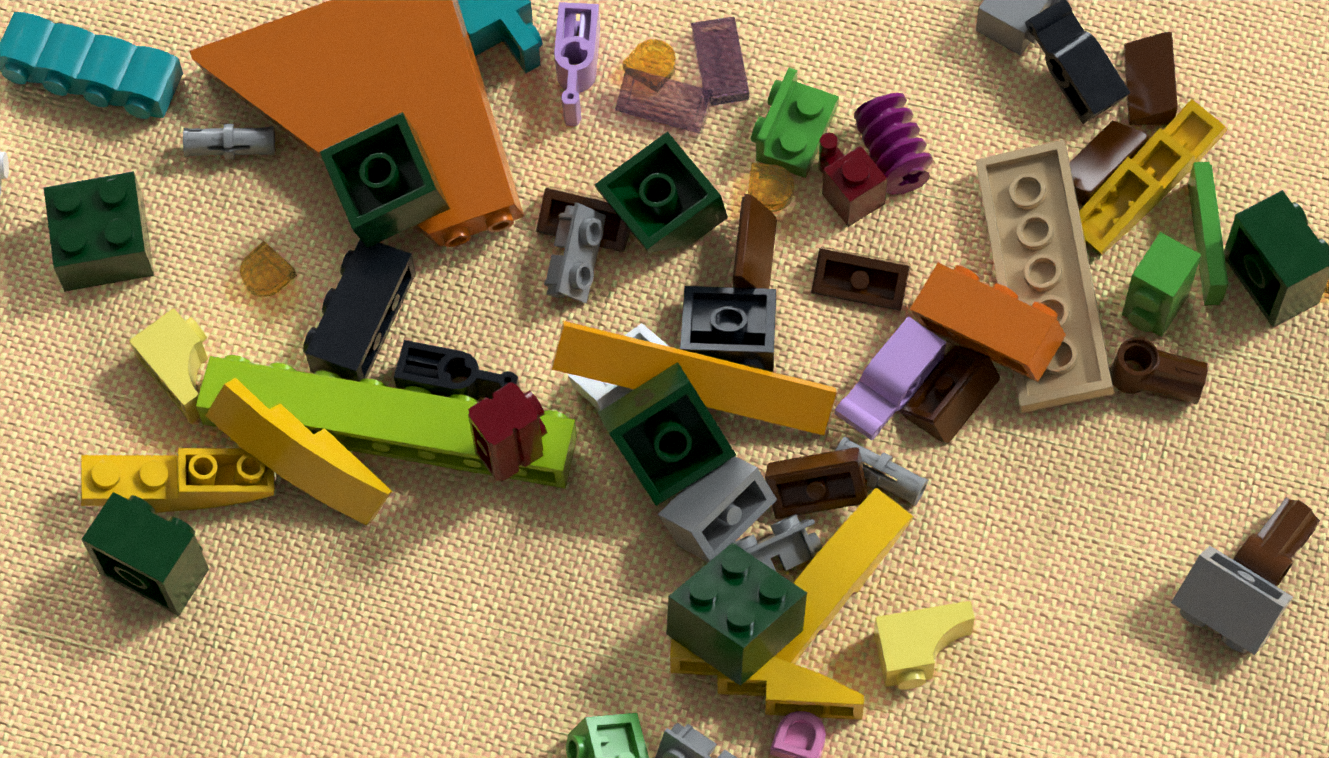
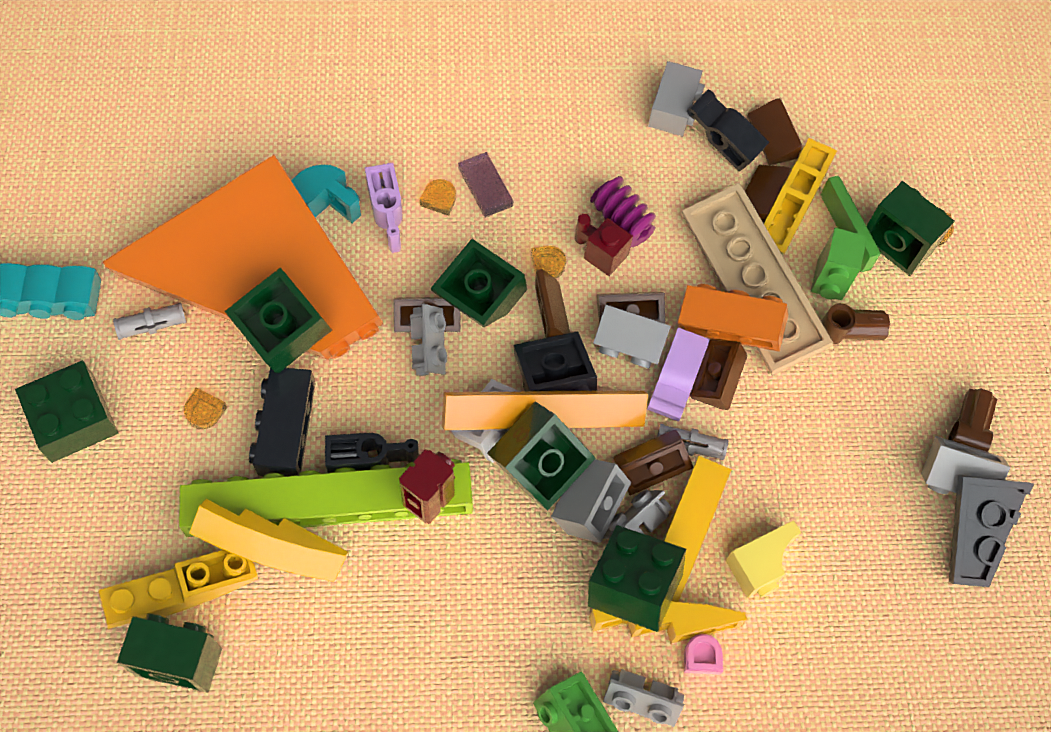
camera: 25 degrees left, 0 degrees up
(172, 356) = (149, 491): light yellow arch -> none
(664, 100) = (457, 219): tile -> none
(793, 124) = (552, 217): bright green bracket -> none
(844, 312) = (632, 336): none -> light grey brick
(1225, 673) = (981, 526): none -> wing

